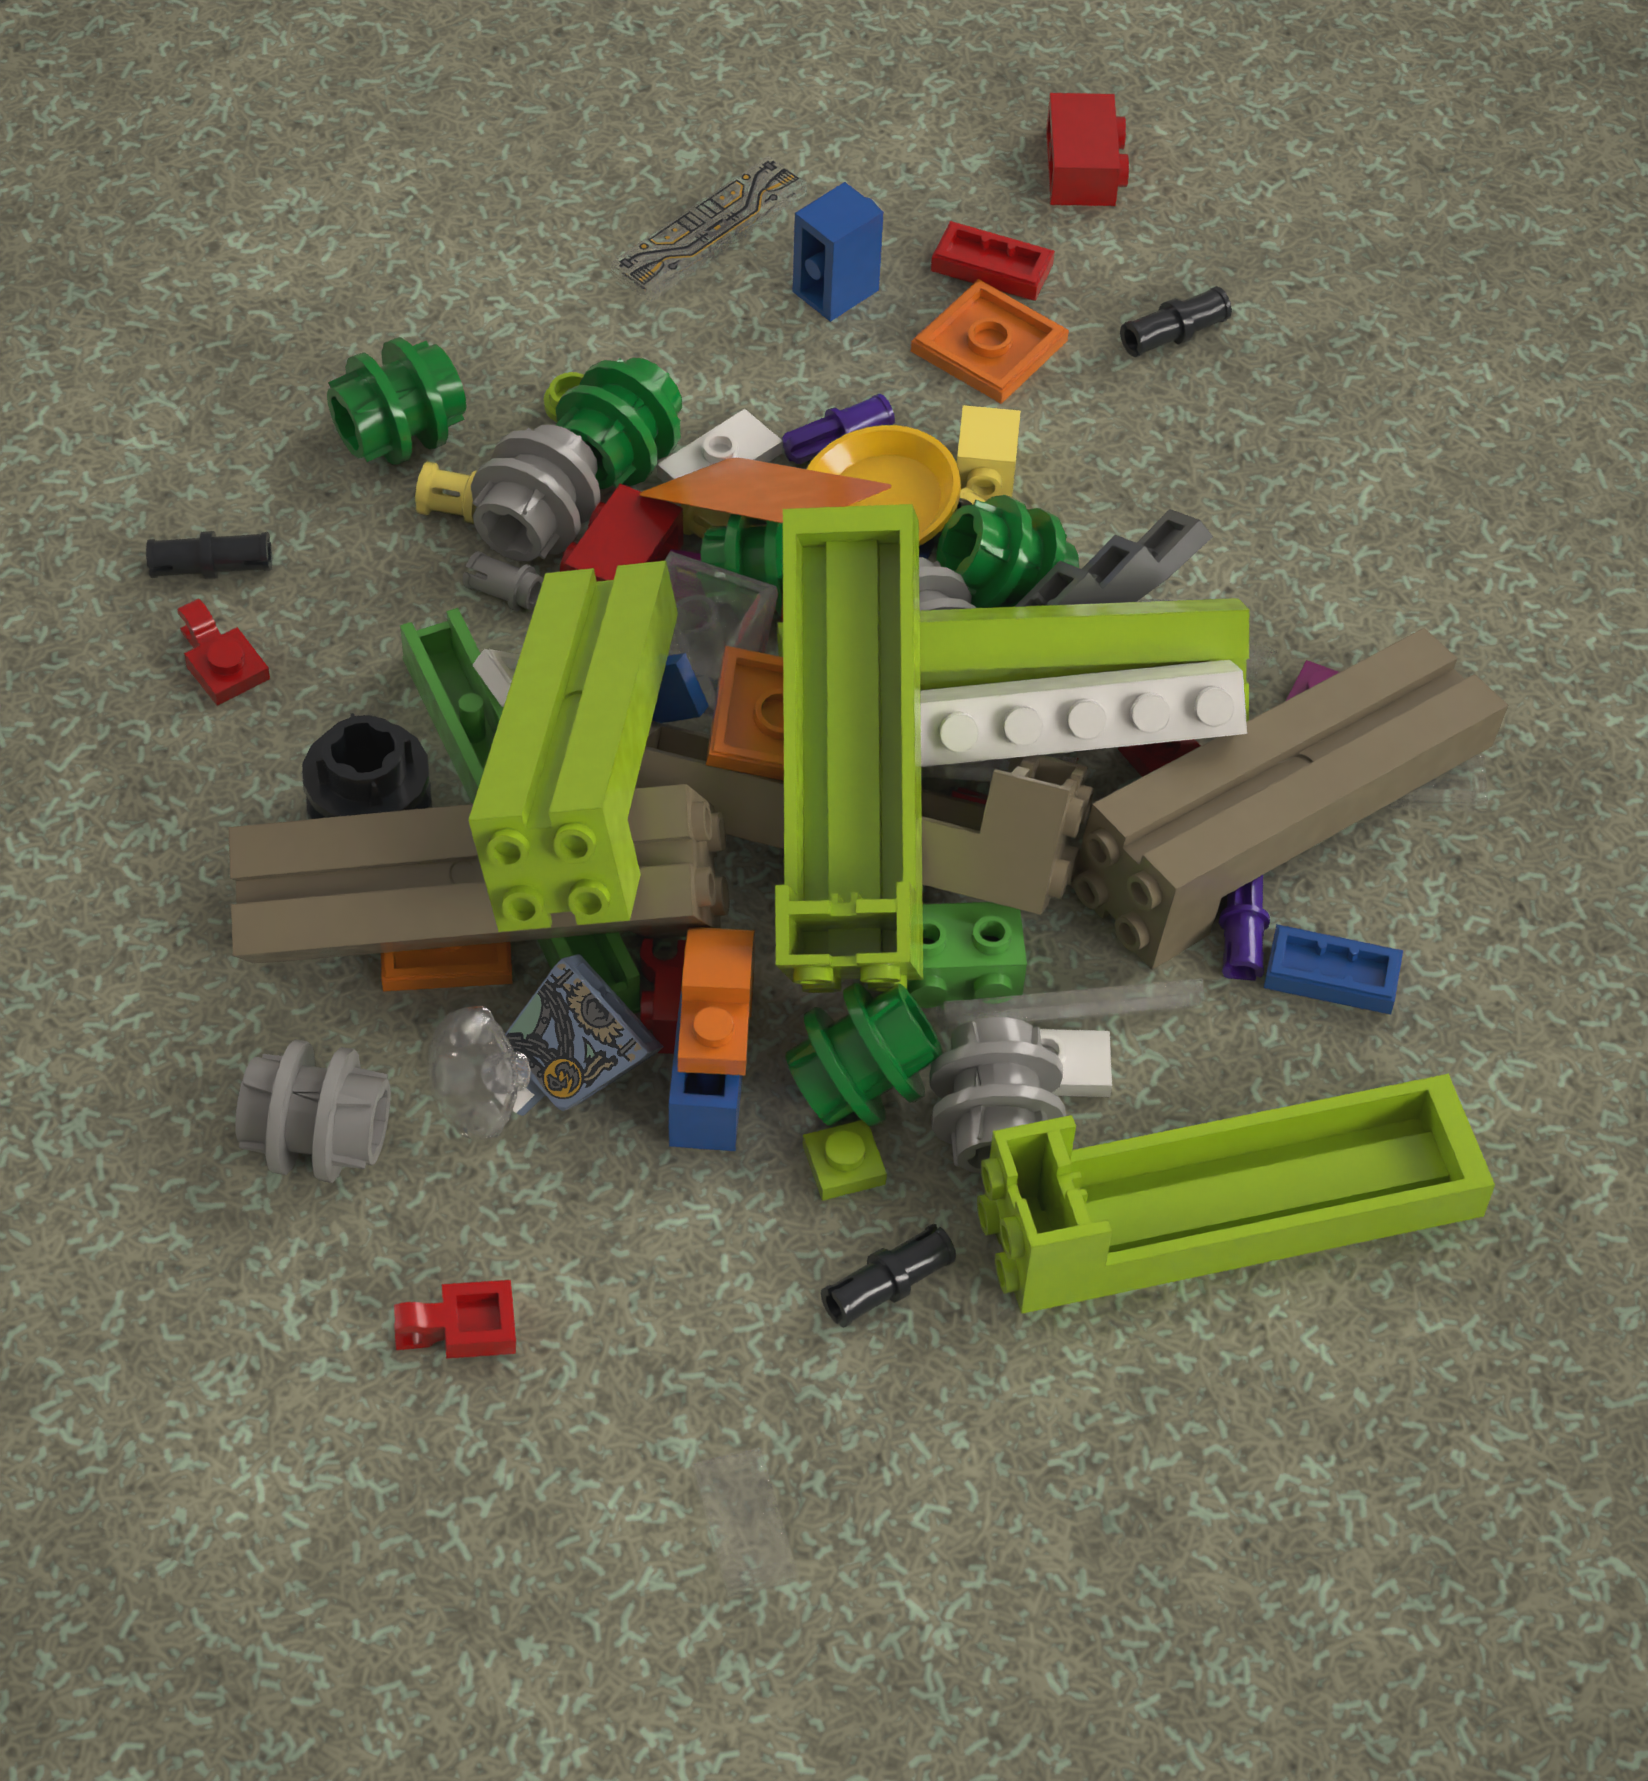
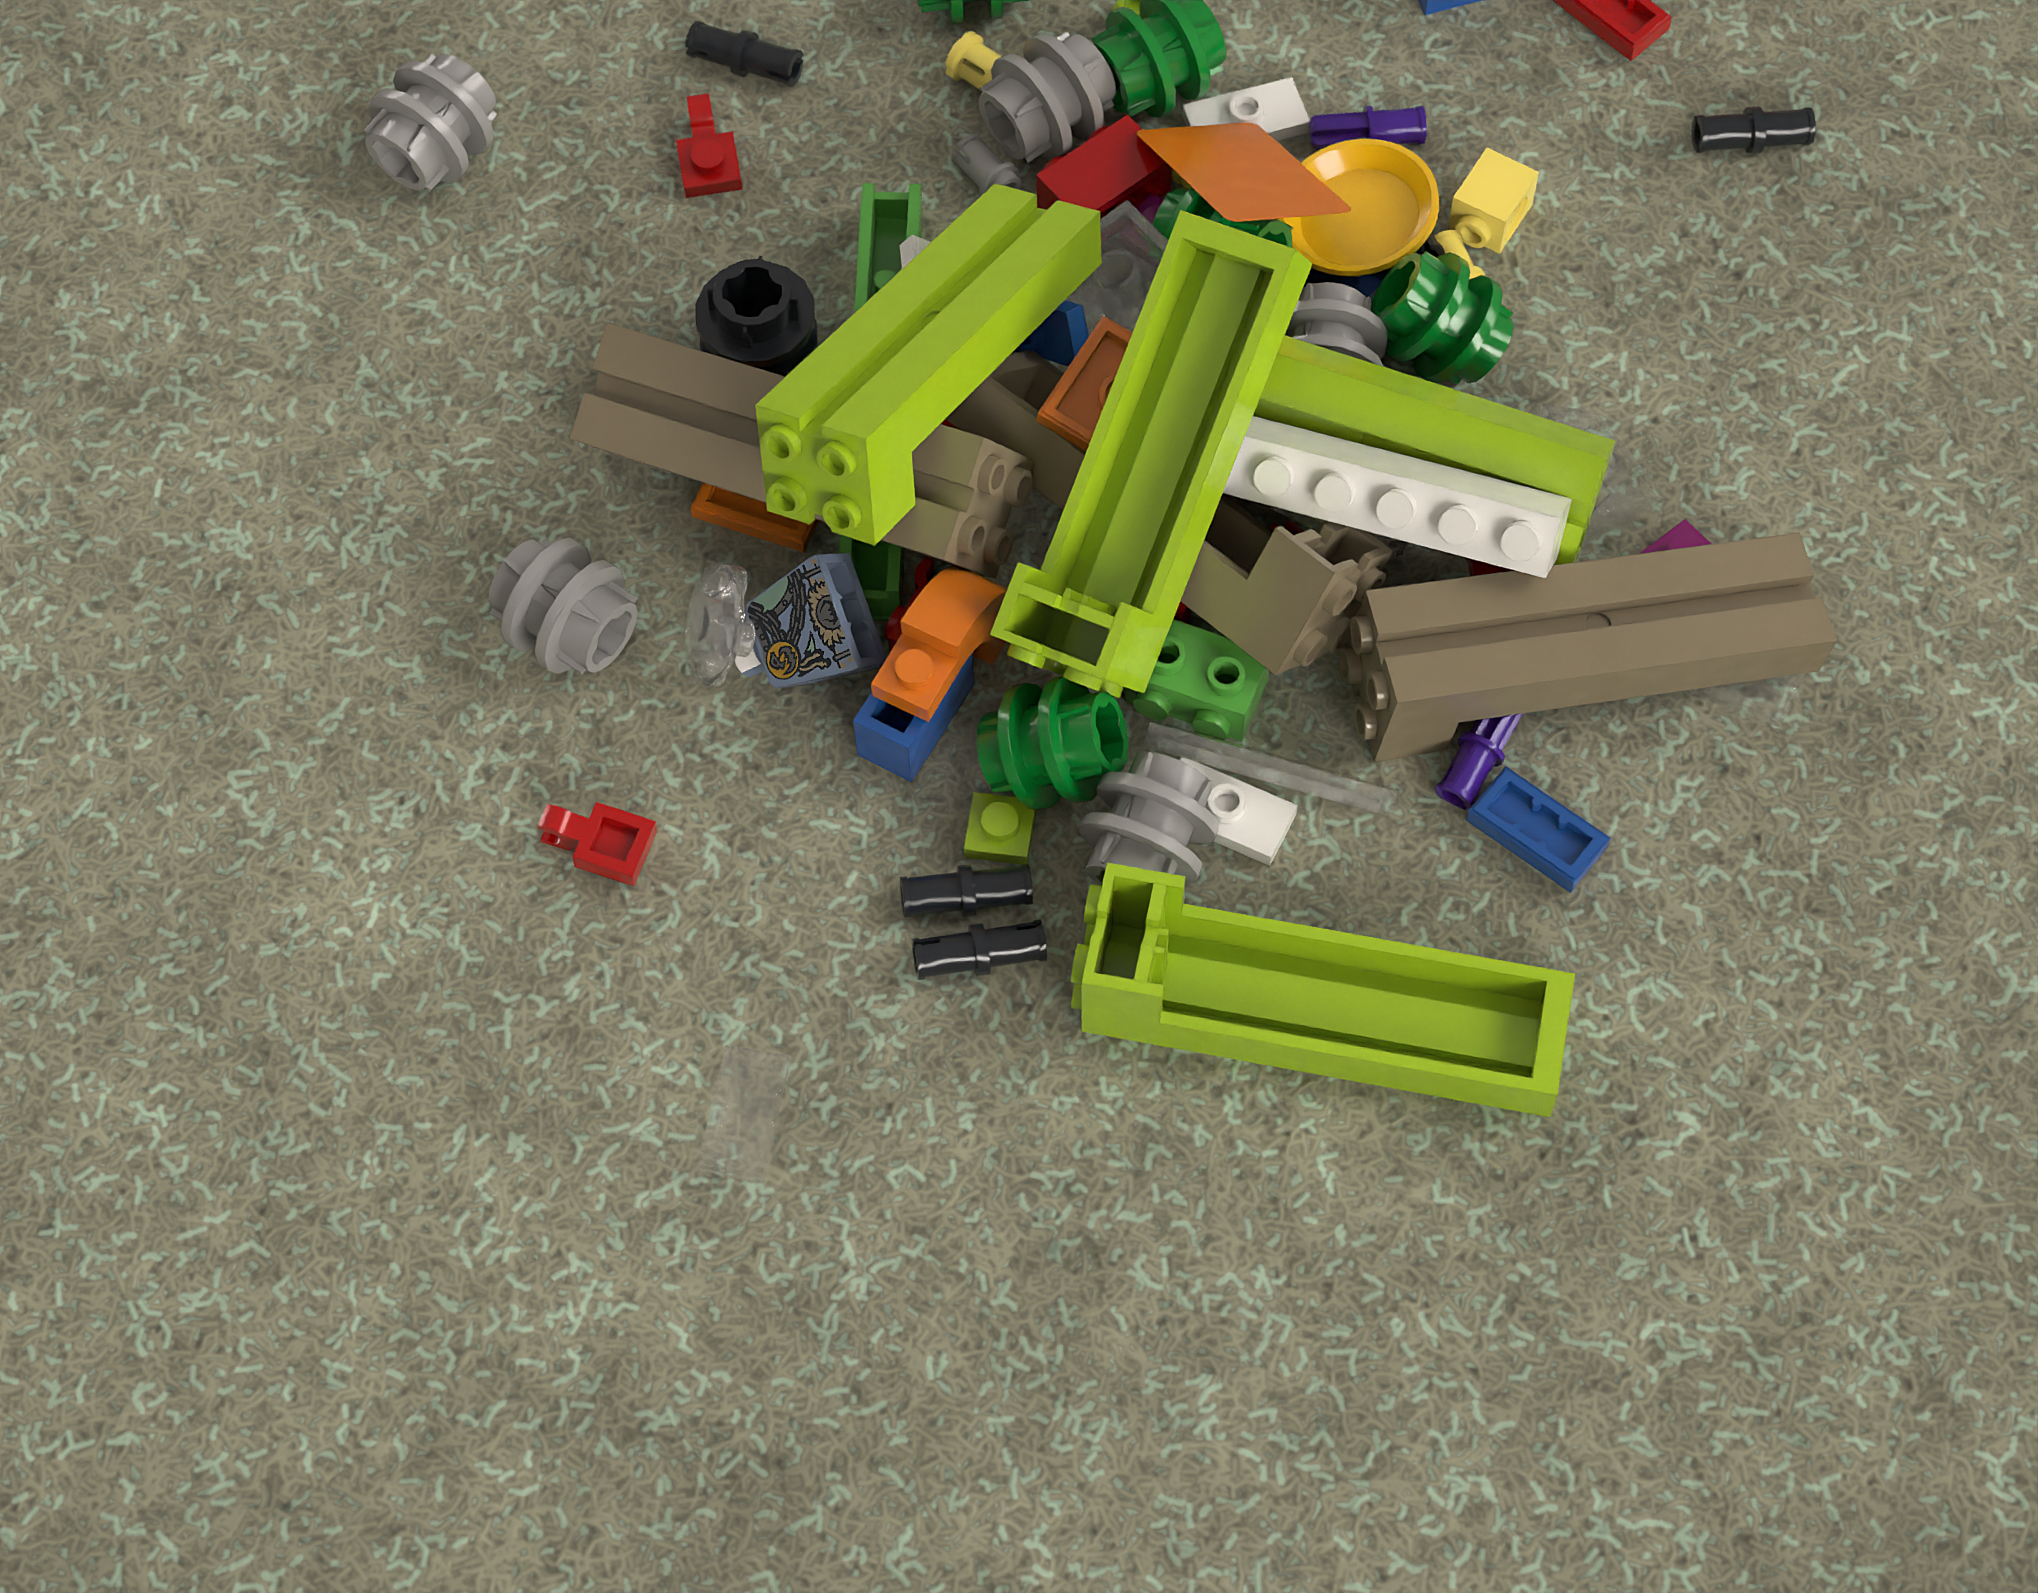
camera: 30 degrees right, 10 degrees up
(846, 1227) = (966, 890): none -> black pin
(989, 341) = (1564, 87): orange tile -> none
(1123, 568) = (1530, 370): dark grey slope -> none

